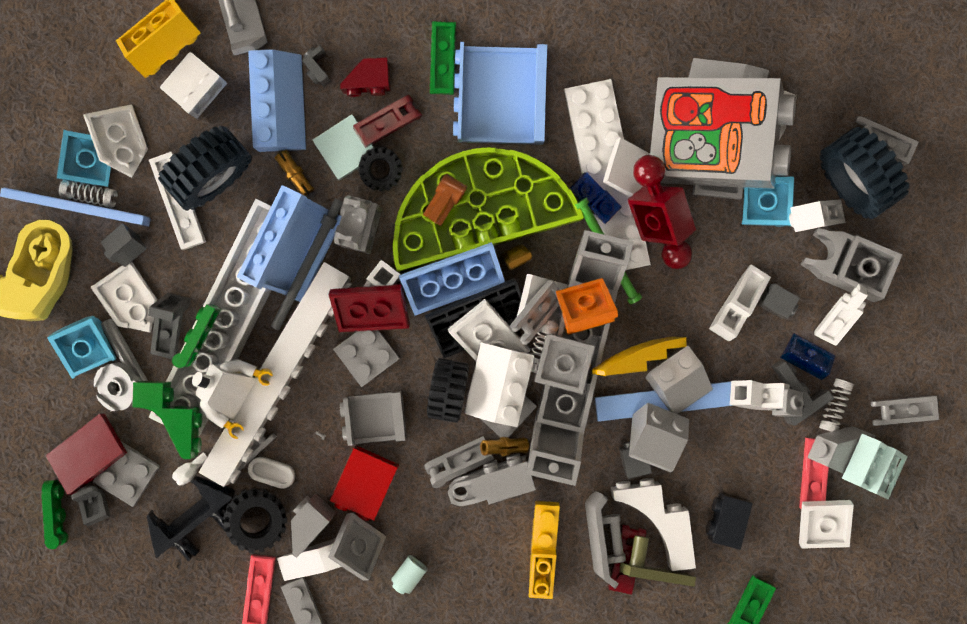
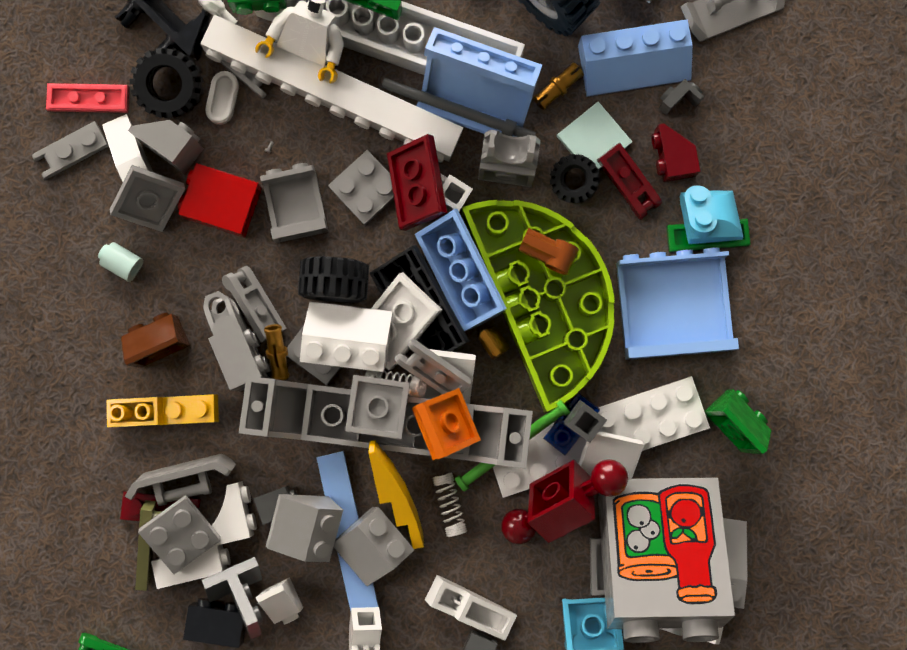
camera: 80 degrees right, 5 degrees down
(426, 54) = (710, 215): none -> medium azure slope
(482, 552) = (154, 341): none -> reddish brown slope
(597, 186) = (584, 421): none -> dark grey brick
(611, 51) = (739, 422): none -> green slope
(653, 544) = (179, 534): none -> light grey plate
(673, 306) = (460, 527): none -> white piece
(697, 500) = (236, 582): none -> bracket
(717, 464) = (280, 602): none -> white slope

